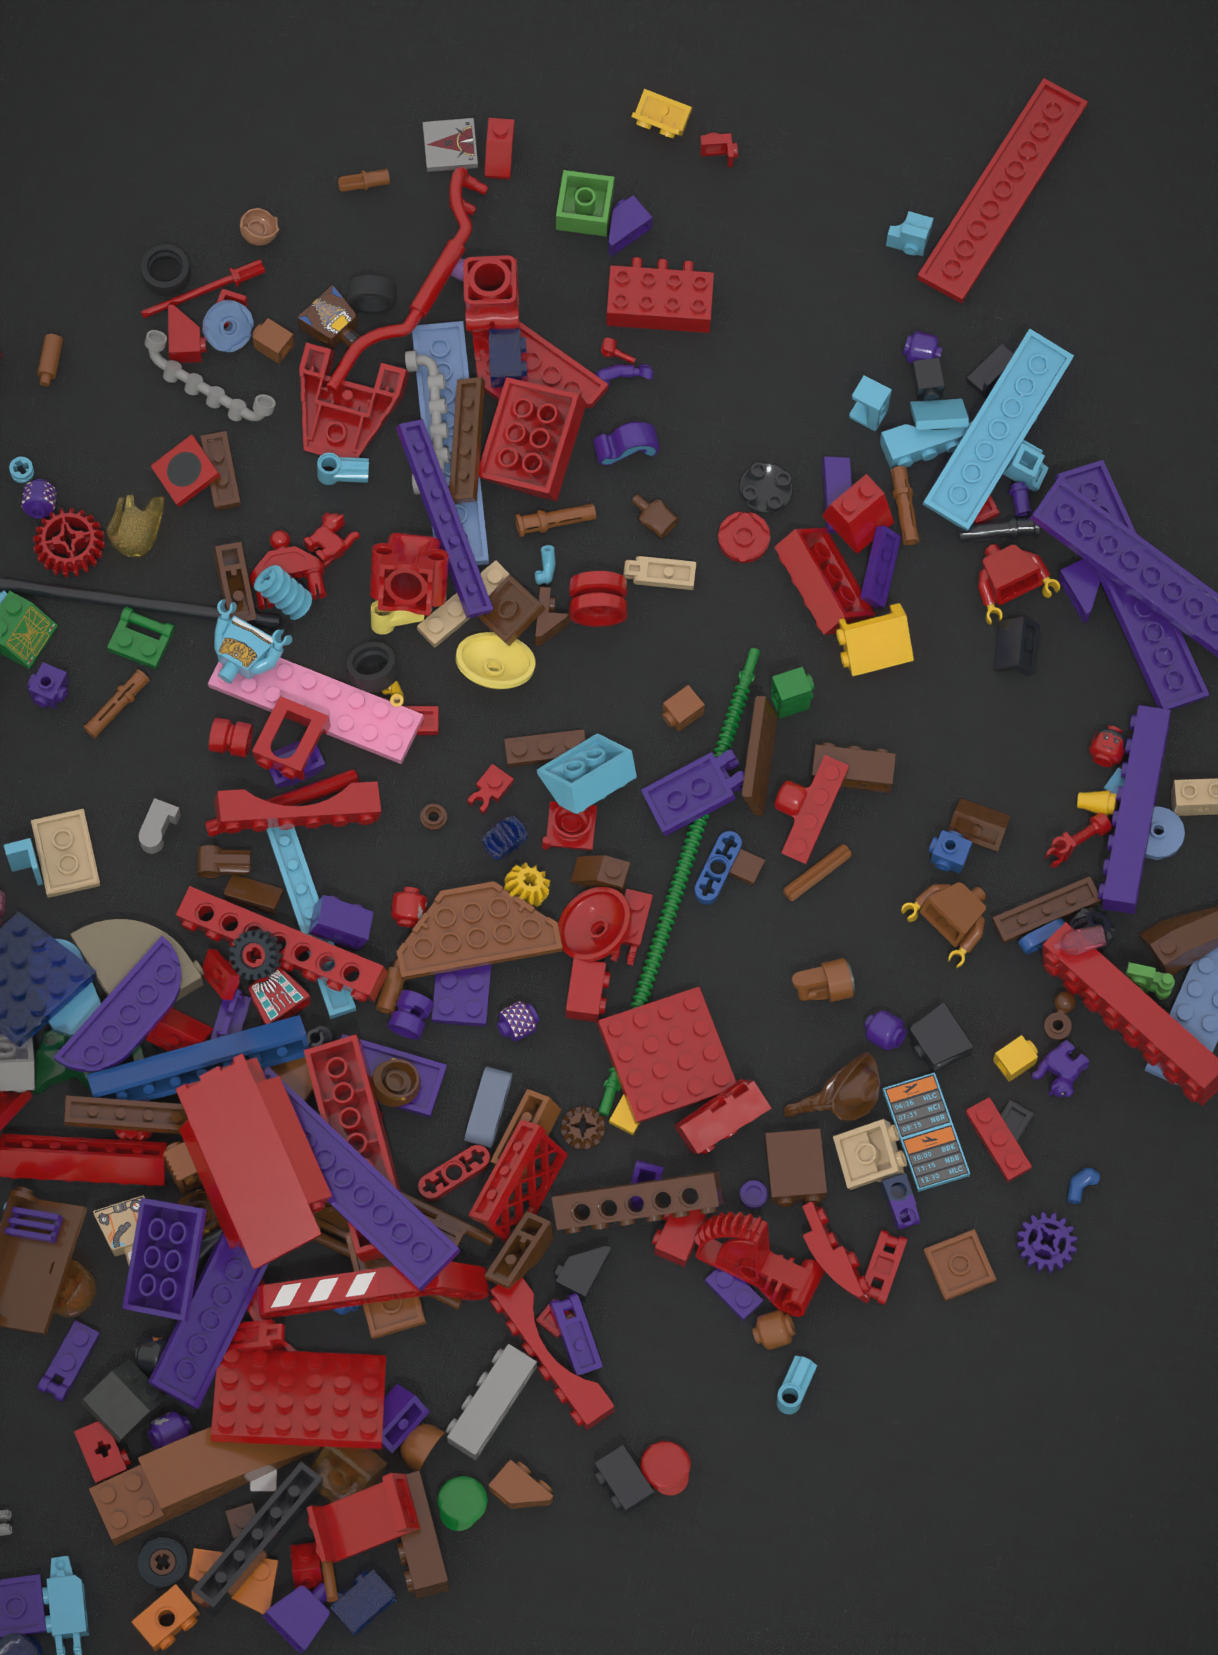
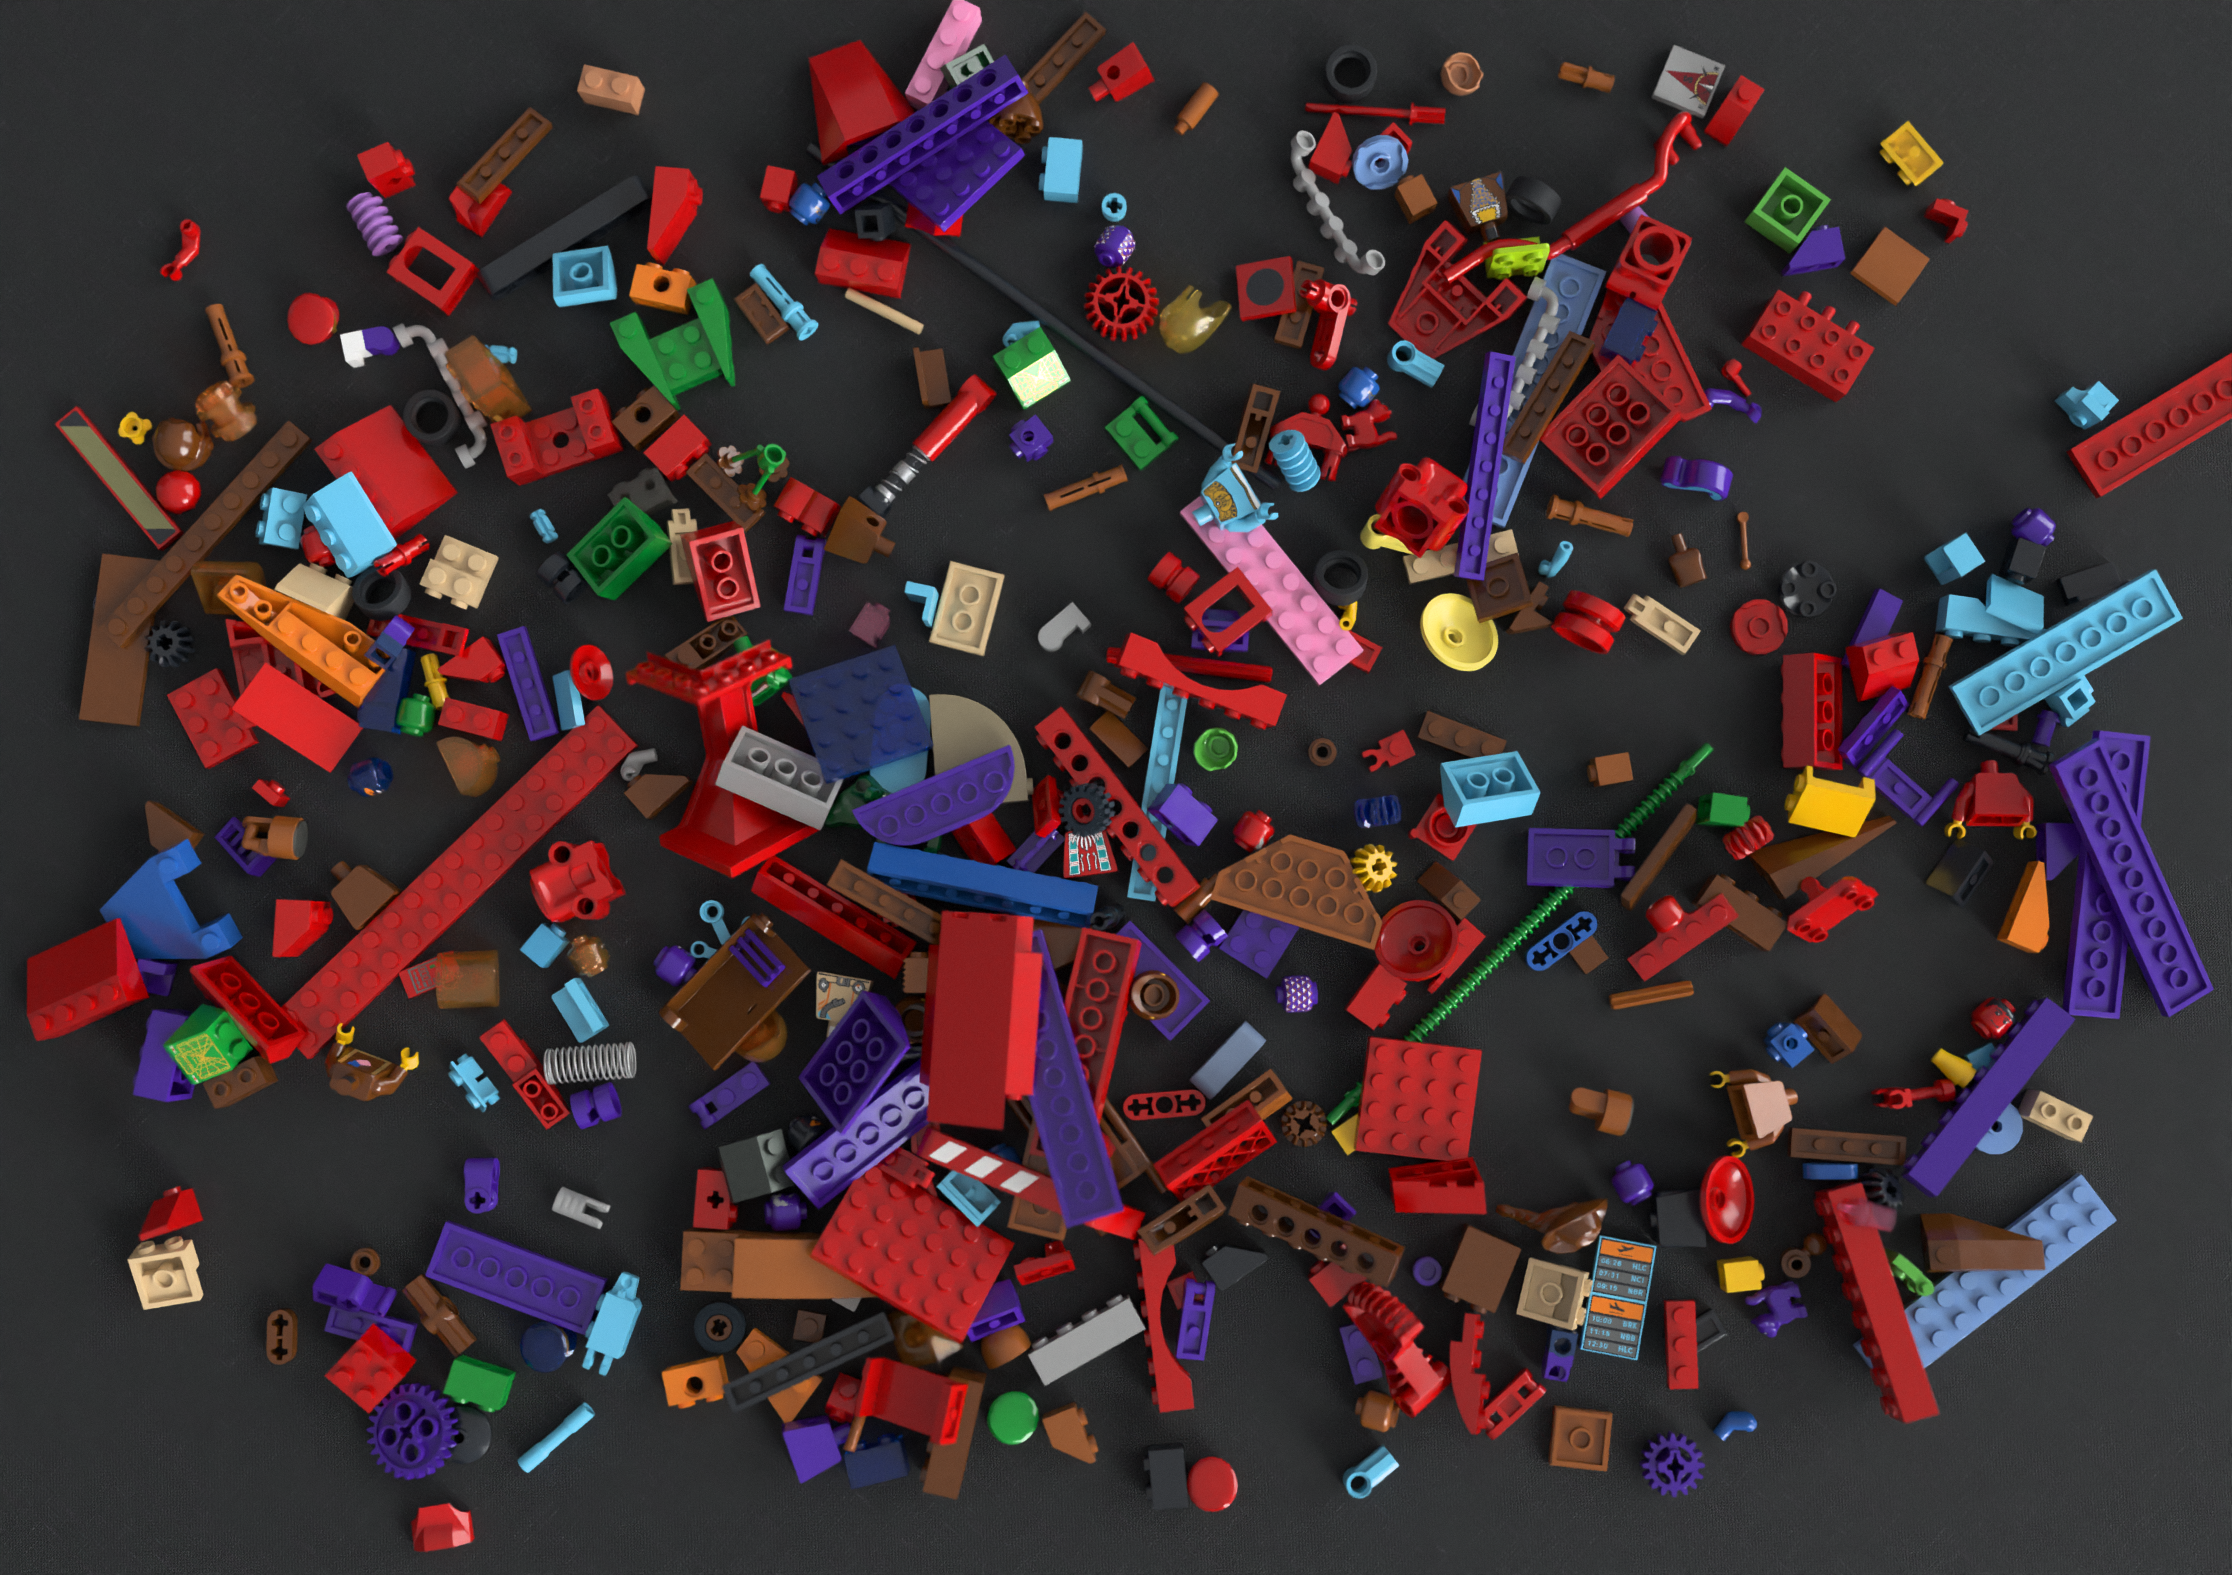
camera: 35 degrees right, 15 degrees up
(249, 455) = (1334, 305): none -> red piece
(306, 510) = (1358, 387): none -> blue head
(323, 1334) = (969, 1196): none -> medium azure hinge
(341, 857) = (1215, 749): none -> bright green hair
(383, 346) = (1517, 260): none -> lime bracket
(429, 1353) = (1055, 1263): none -> red hinge
(683, 459) = (1742, 518): none -> dark orange hinge
(693, 206) = (1890, 266): none -> dark orange slope
(825, 703) = (1748, 838): none -> red gear
(878, 705) = (1792, 861): none -> reddish brown wedge
(920, 722) = (1828, 906): none -> red shield
(929, 604) = (1899, 787): none -> dark purple plate
(968, 998) = (1727, 1199): none -> red dish
(1090, 651) = (2028, 914): none -> orange slope

